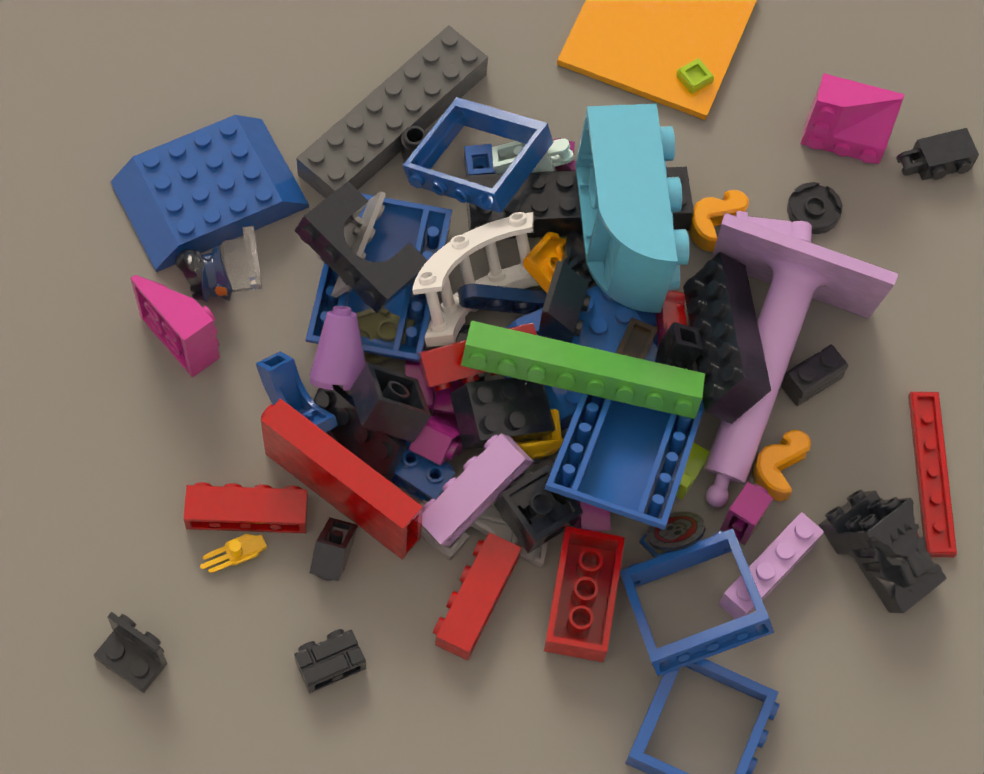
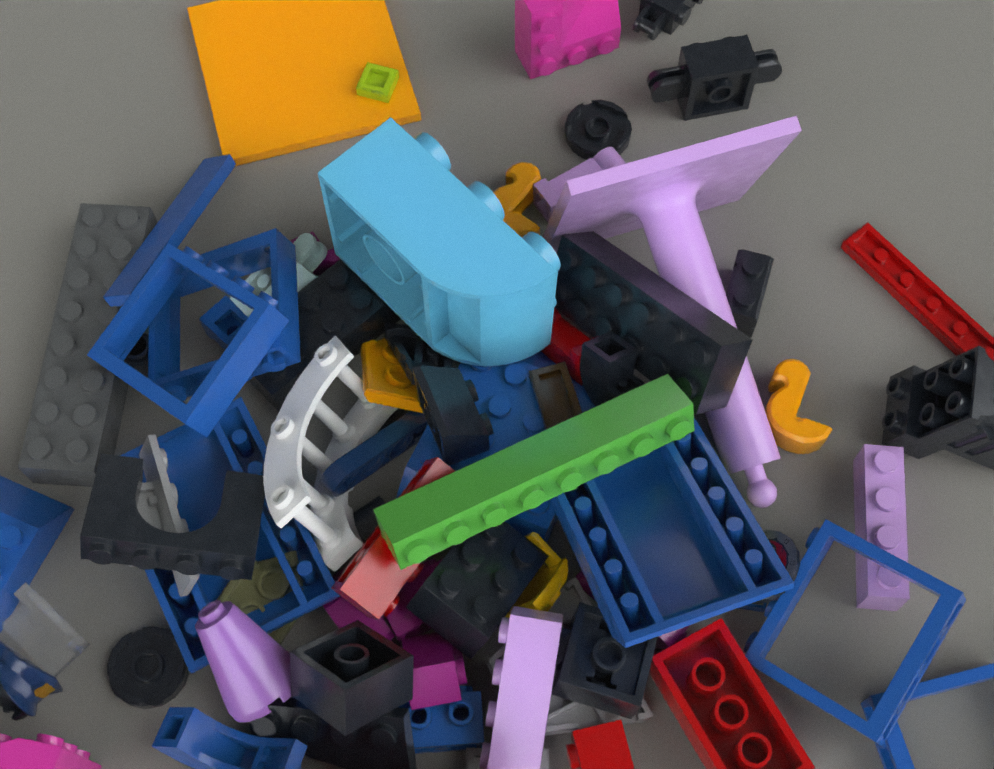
camera: 30 degrees left, 0 degrees up
(283, 324) = (147, 668): none -> black tile
(459, 185) = (232, 367): none -> blue window
(490, 79) = (173, 224): none -> blue tile
(747, 512) = (812, 488): magenta brick -> none
(917, 227) = (714, 77): none -> black brick

